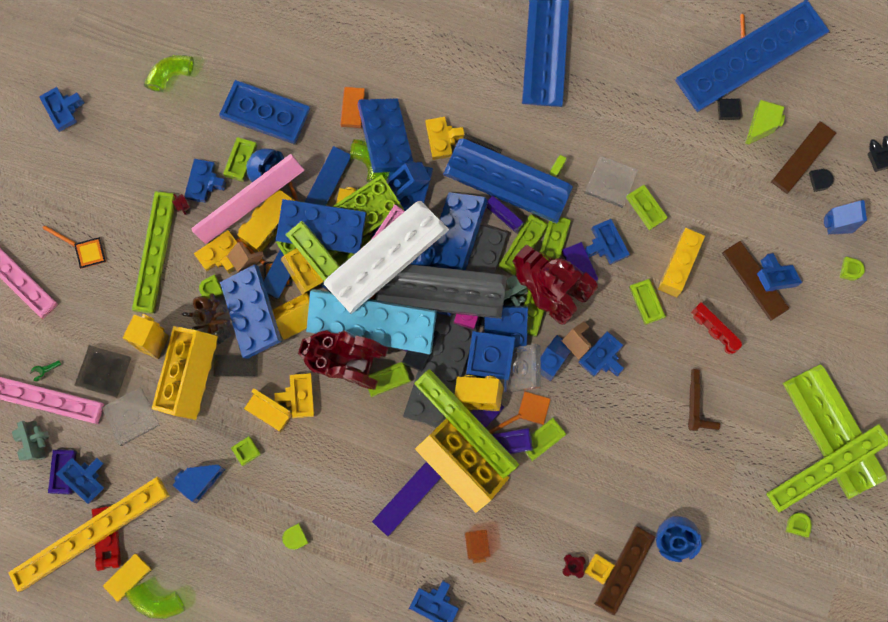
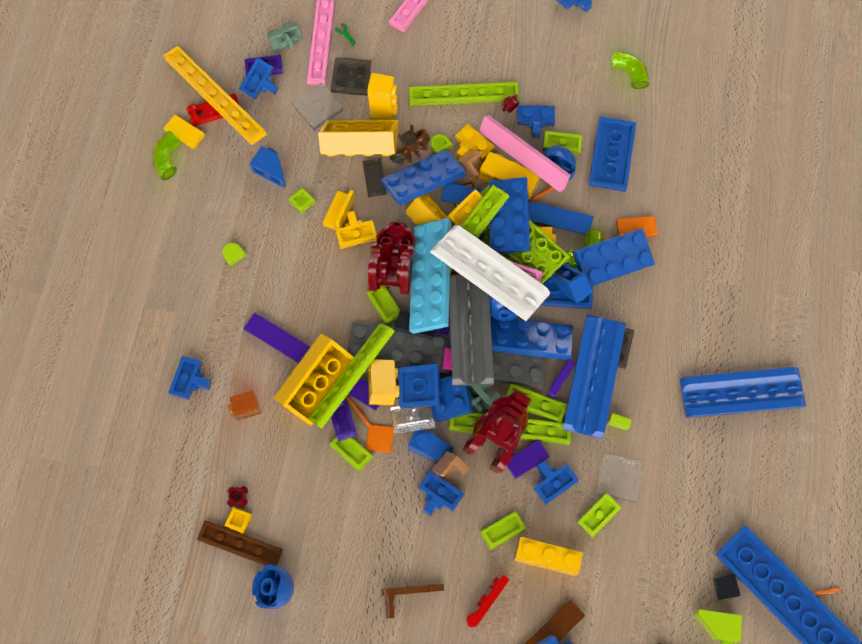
camera: 80 degrees right, 5 degrees down
(88, 252) = (454, 44): piece -> none
(442, 137) = (626, 310): yellow hinge -> none

